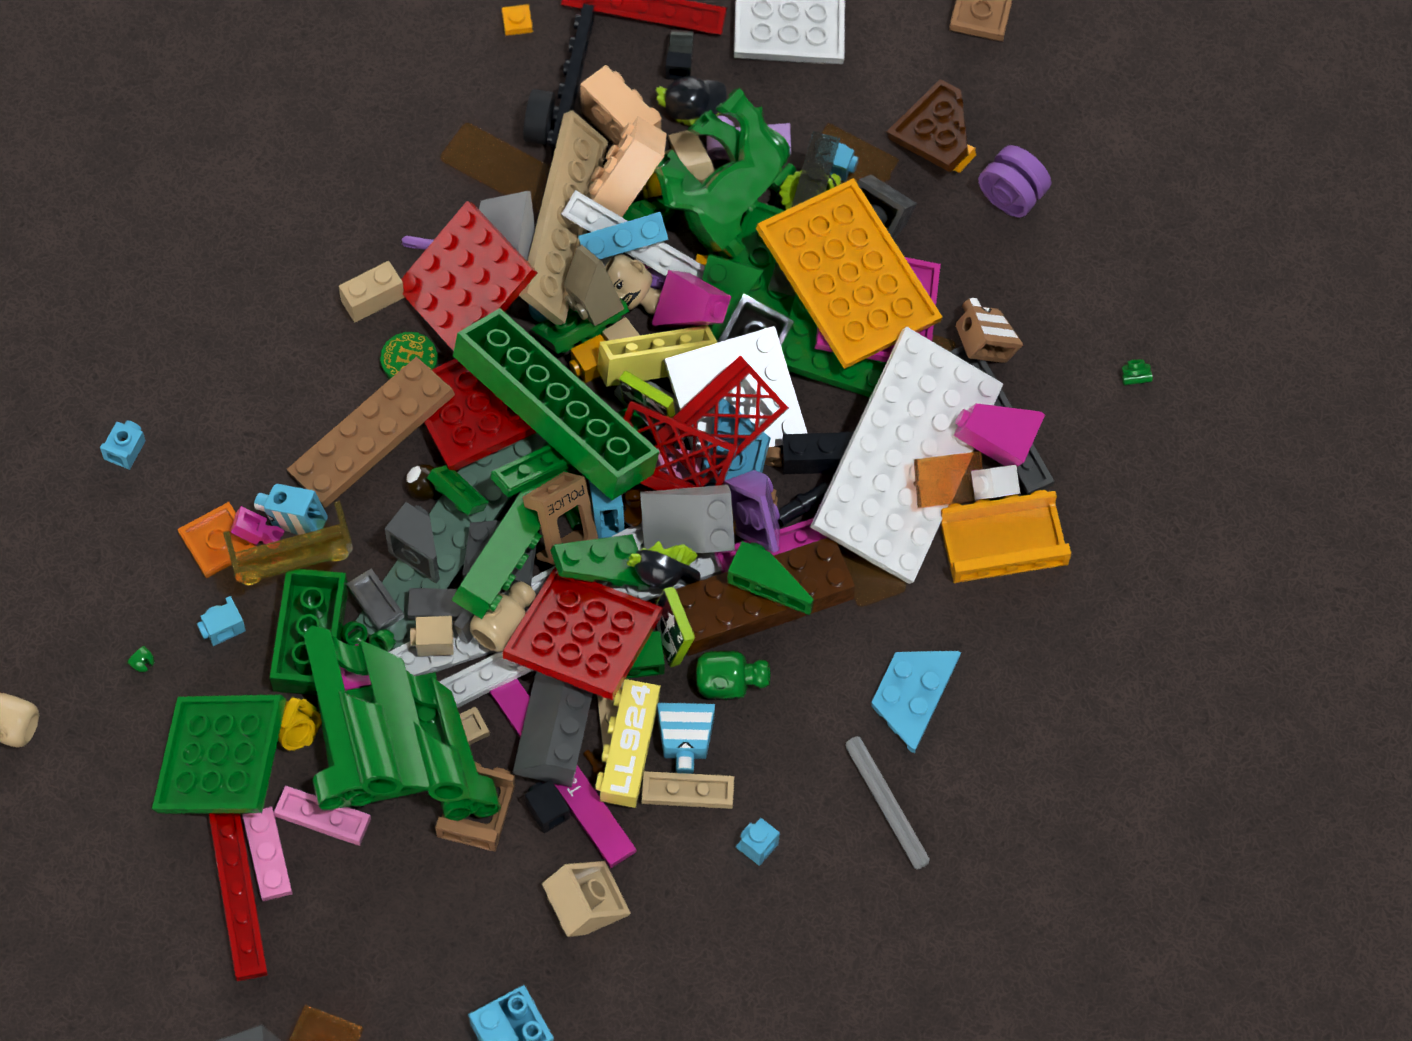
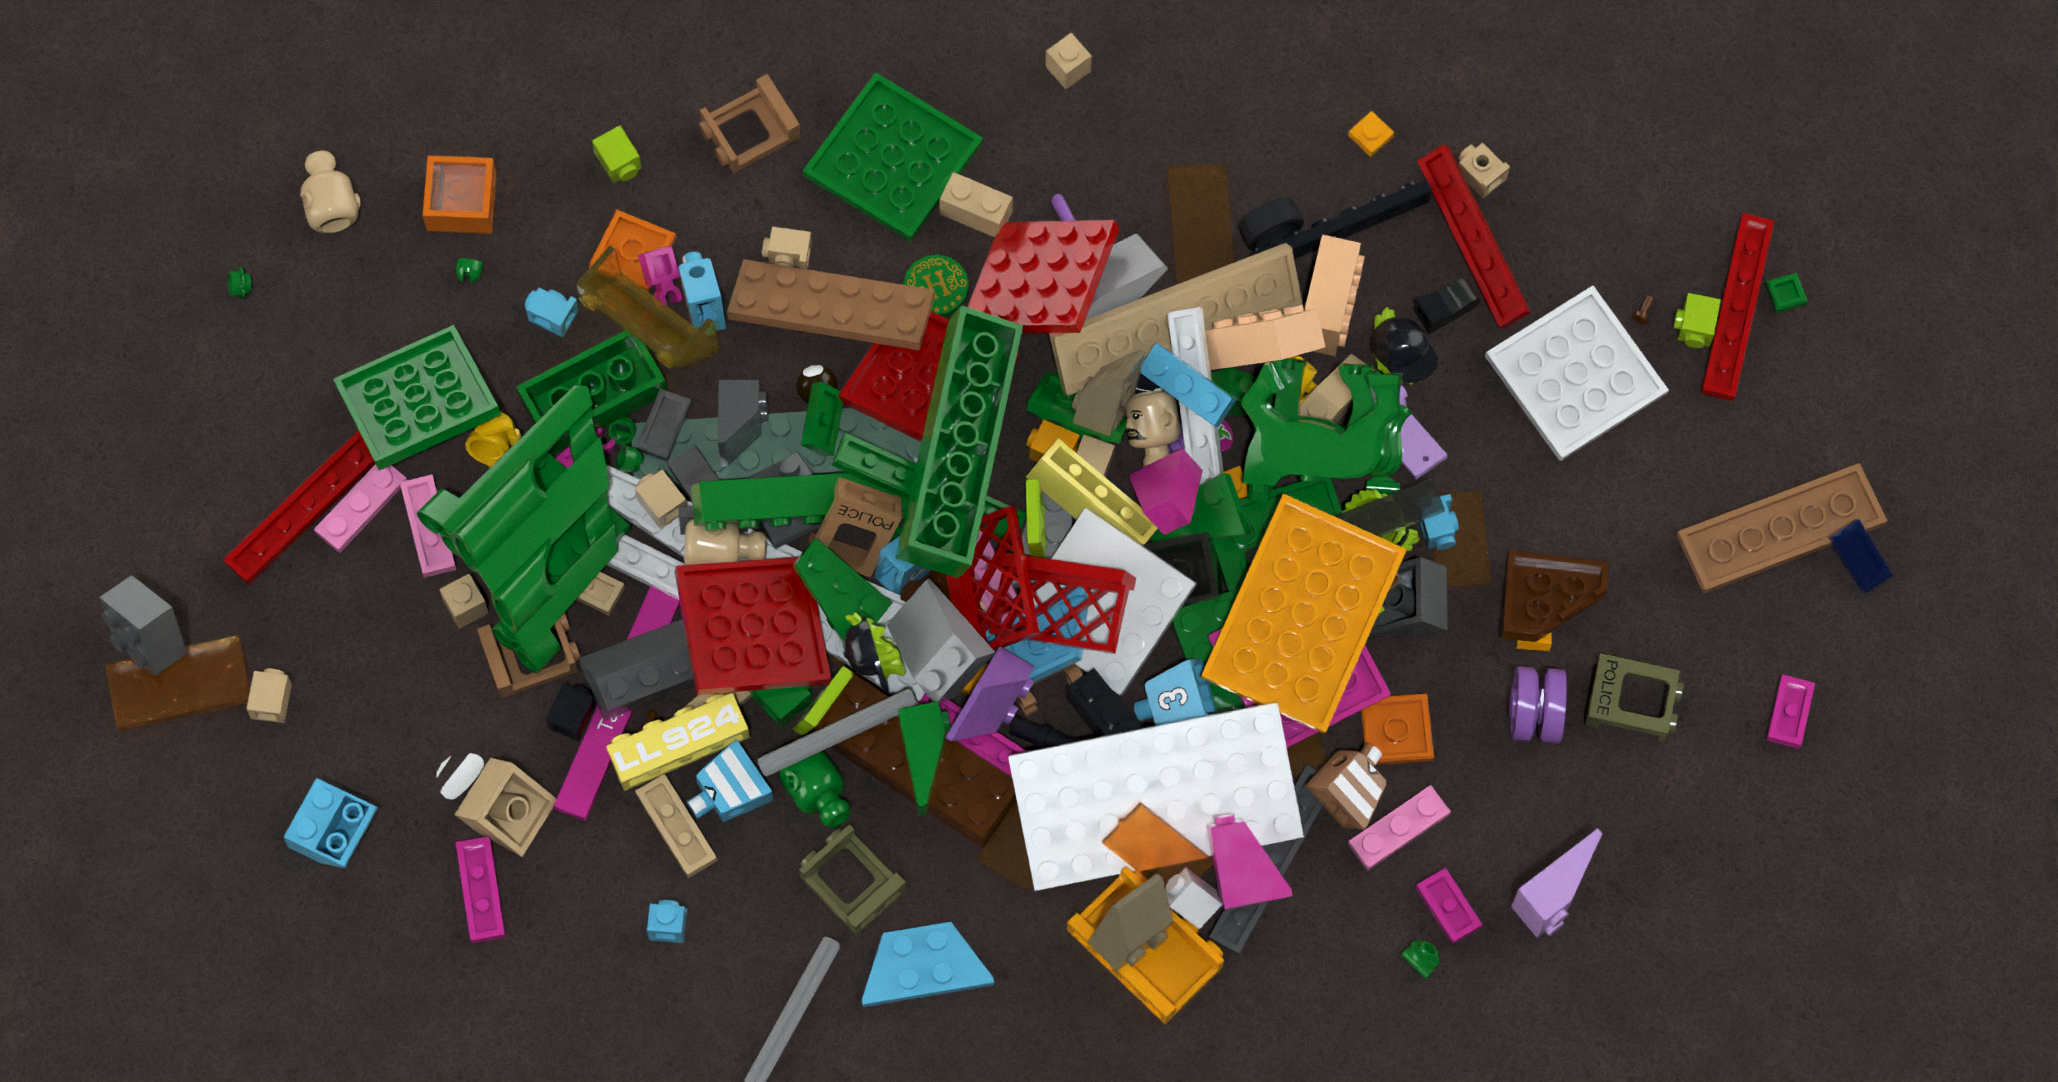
camera: 55 degrees right, 5 degrees up
(19, 829) = (239, 283): none -> green plate
(80, 625) = (459, 194): none -> piece
(123, 452) = (662, 113): medium azure brick -> none
(136, 500) = (617, 155): none -> lime brick
(186, 377) = (771, 111): none -> medium nougat window
(288, 322) = (892, 156): none -> green plate
(303, 432) = (788, 247): none -> tan brick
(310, 164) = (1068, 61): none -> tan brick
(371, 1012) = (269, 695): none -> tan brick
(403, 825) = (464, 601): none -> tan brick
(539, 915) = (462, 777): none -> white sticker
(637, 957) = (480, 890): none -> dark pink plate
(708, 627) = (836, 732): none -> light grey axle
(840, 691) = (873, 900): none -> olive window
(842, 398) = (1177, 695): none -> medium azure torso
(963, 279) = (1399, 729): none -> orange tile
(994, 528) = (1134, 925): none -> dark tan slope
(1026, 134) = (1606, 691): none -> olive window
(1033, 326) = (1399, 828): none -> bright pink plate
(1112, 332) = (1448, 906): none -> dark pink plate
(1124, 43) = (1790, 711): none -> dark pink plate
(1153, 253) = (1547, 896): none -> lavender slope

